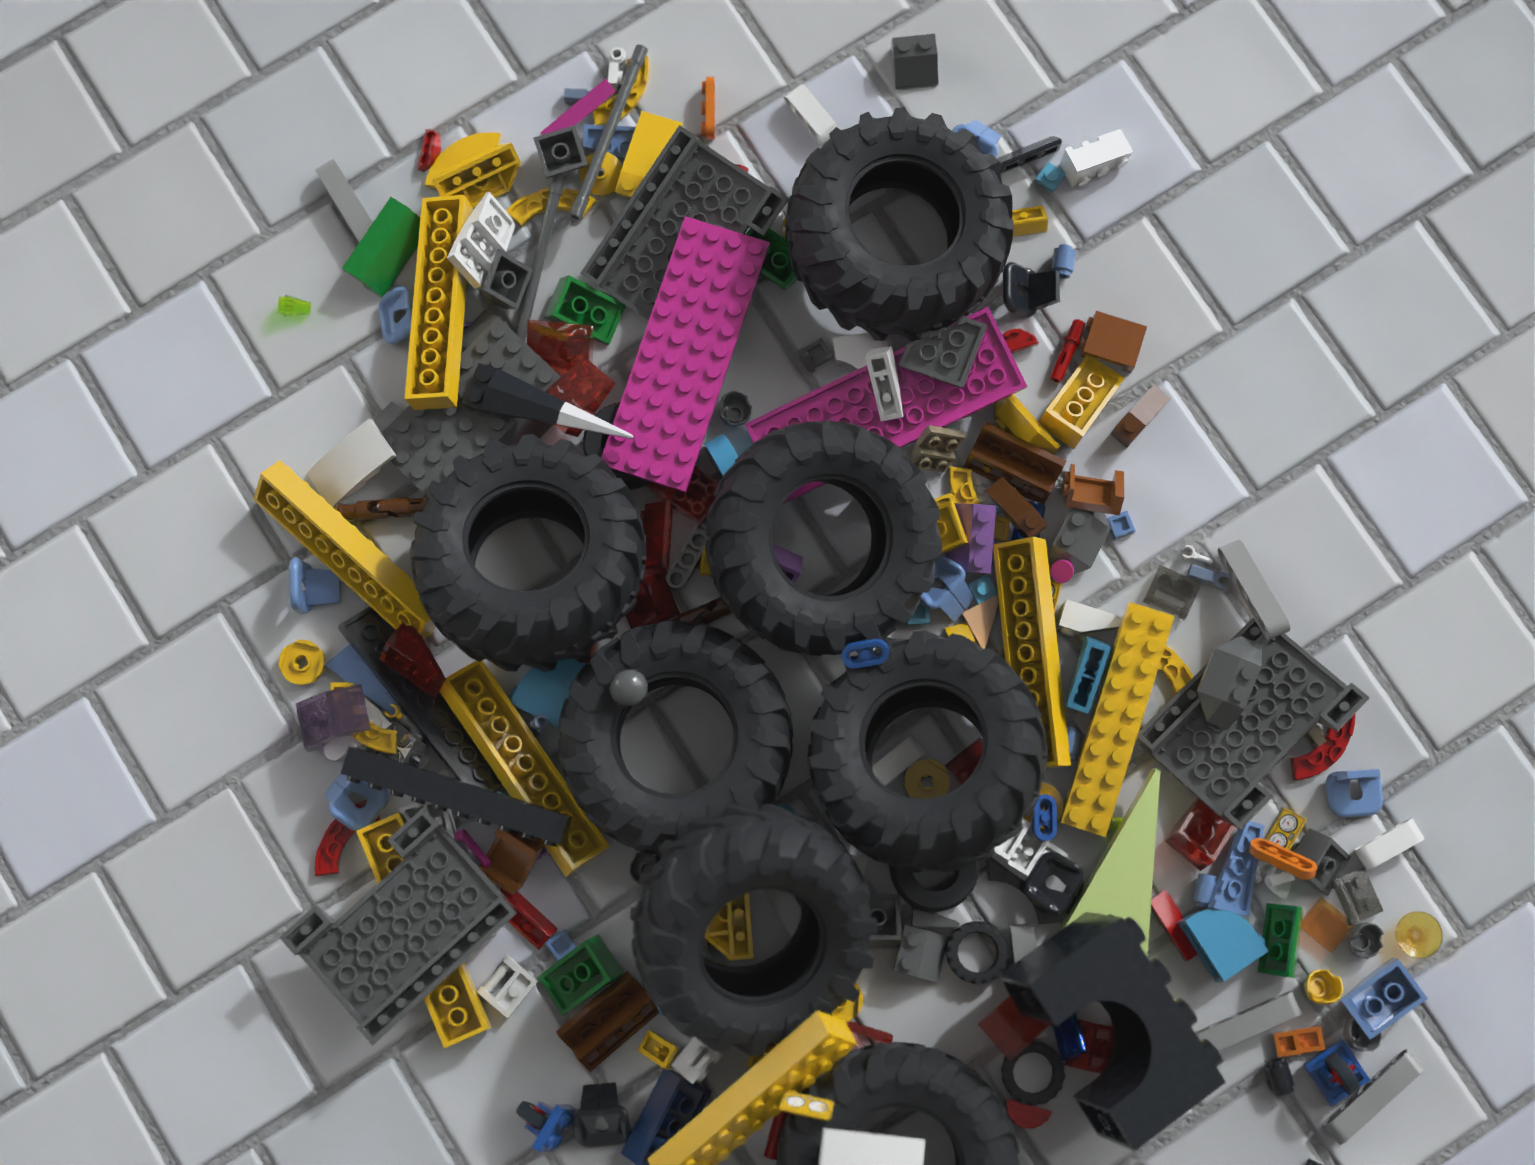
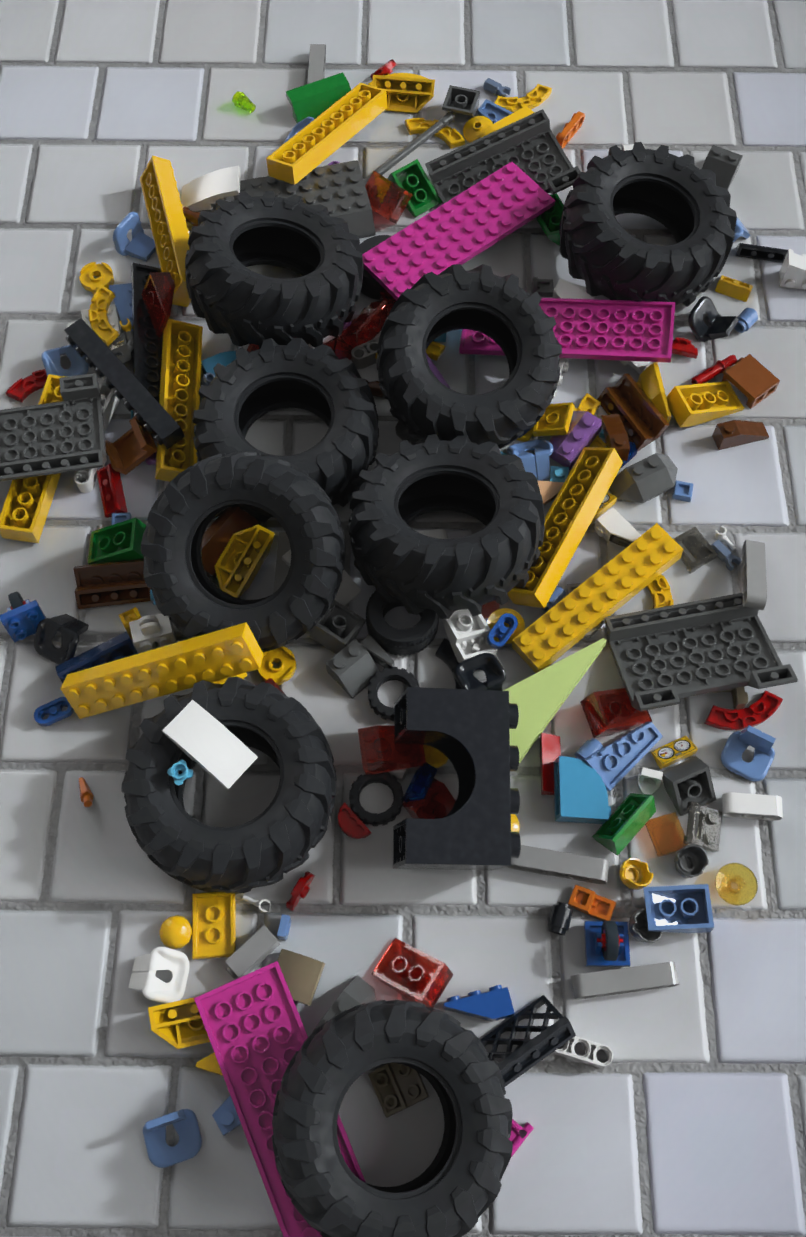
camera: 30 degrees right, 15 degrees down
(332, 716) = (88, 297): clear purple slope -> none
(463, 836) = (113, 428): dark pink hose -> none
(480, 237) = (378, 117): white slope -> none
(506, 281) = (376, 145): dark grey slope -> none
(506, 395) = (330, 193): black plate -> none
(513, 991) = (70, 528): white plate -> none
(582, 107) = (498, 90): dark pink sticker -> none
(582, 199) = (454, 128): dark grey piece -> none
(582, 387) = (371, 218): clear red slope -> none
(617, 59) = (525, 83): white plate -> none
(628, 687) = (275, 364): dark grey hair -> none
(807, 1105) = (192, 684): slope -> none
(866, 655) = (446, 432): blue plate -> none
(885, 382) = (576, 307): white slope -> none
(936, 448) = (584, 371): dark tan slope -> none
(946, 353) = (628, 312): dark grey plate -> none
(1050, 177) = (768, 273): medium azure plate -> none
(1062, 571) = (621, 489): dark pink tile -> none
(1087, 673) = (596, 554): dark azure brick -> none
(1094, 493) = (675, 457): dark orange panel -> none
(1229, 680) = (695, 616): dark grey wedge -> none
(1283, 858) = (661, 759): orange plate -> none

